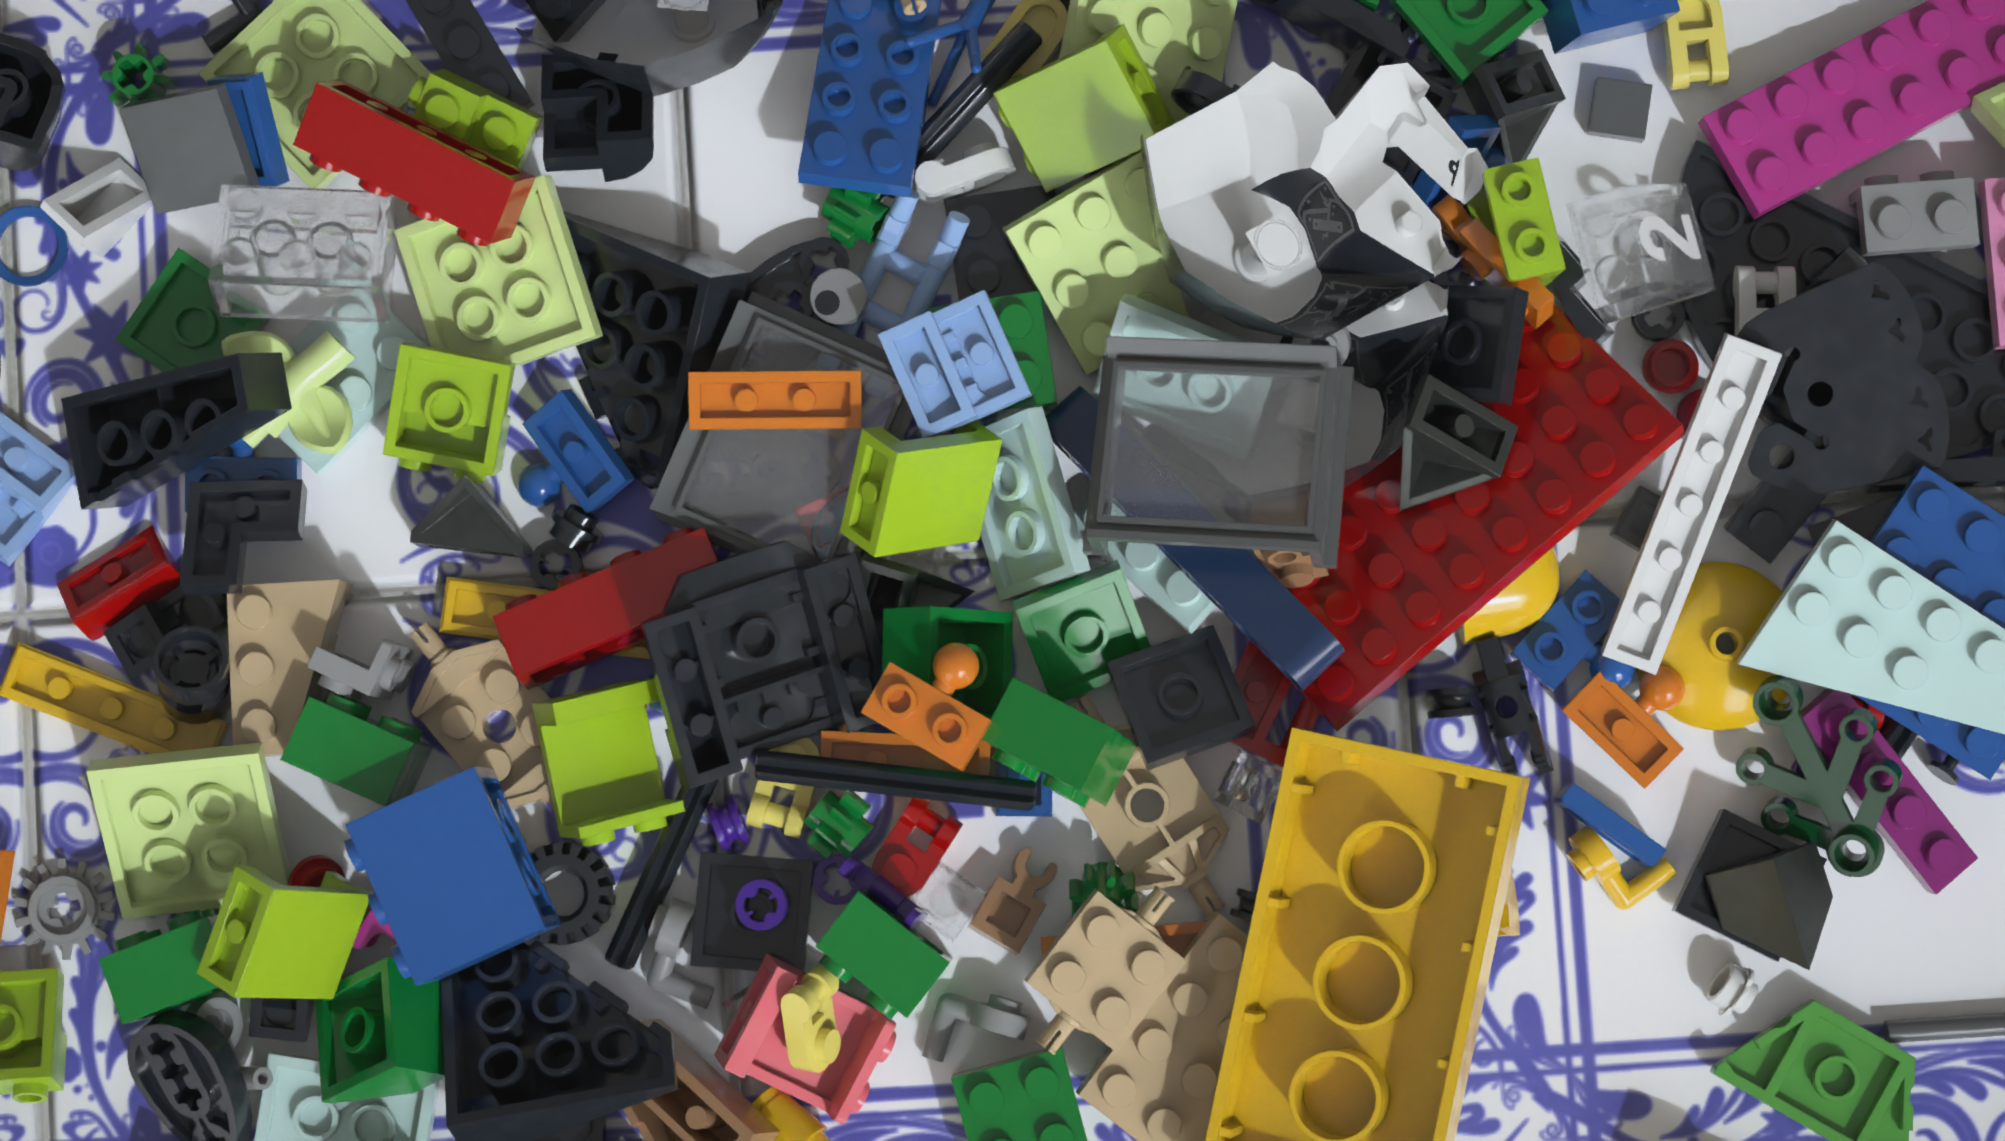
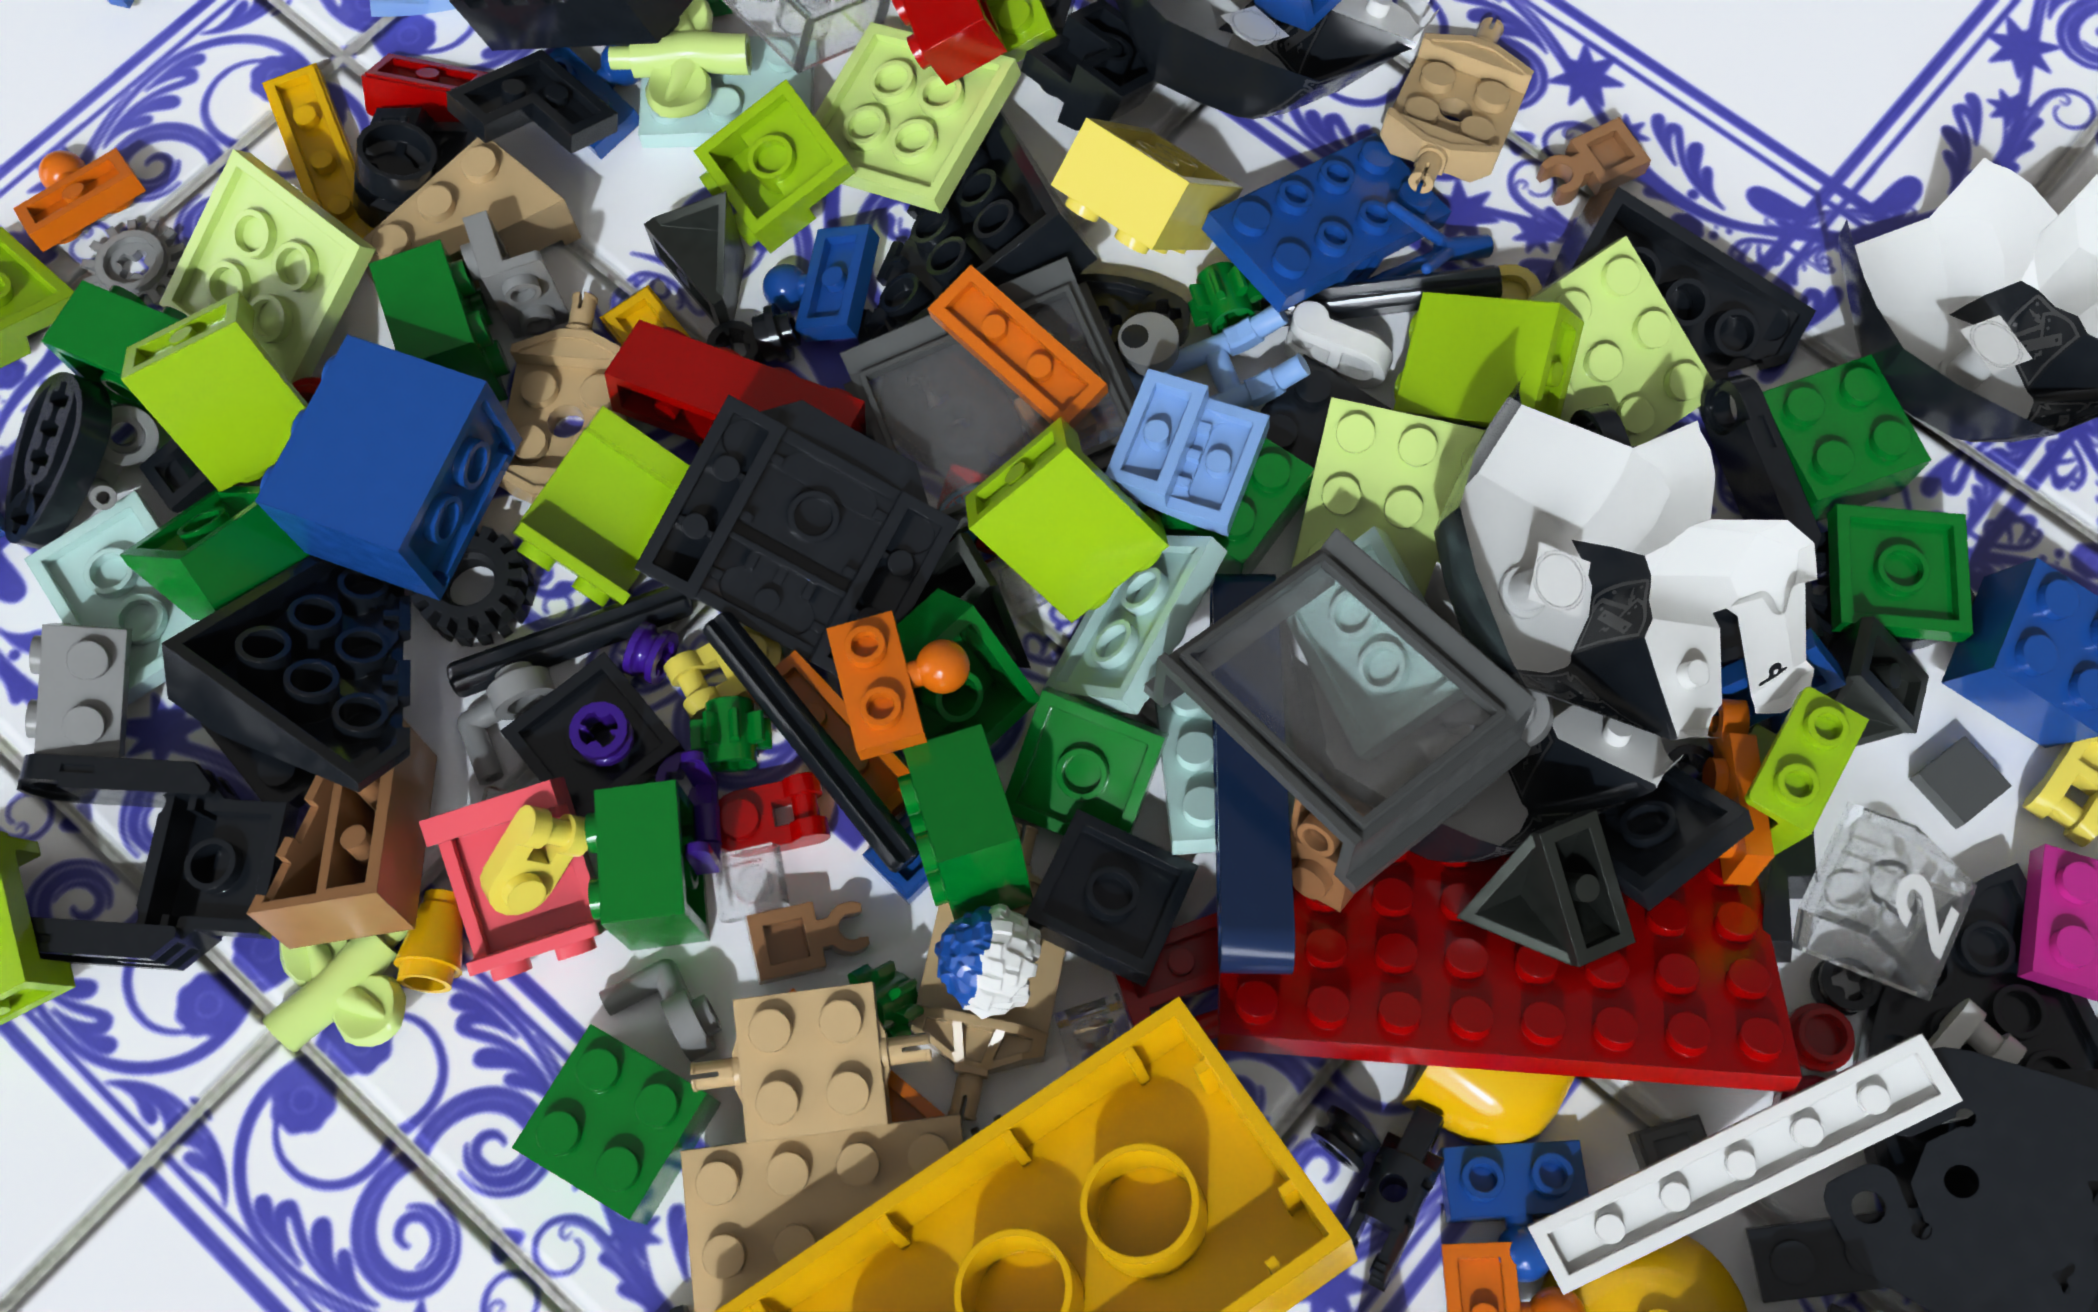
camera: 40 degrees right, 15 degrees down
(738, 192) = (1141, 187): none -> light yellow brick
(1153, 809) = (989, 959): none -> piece

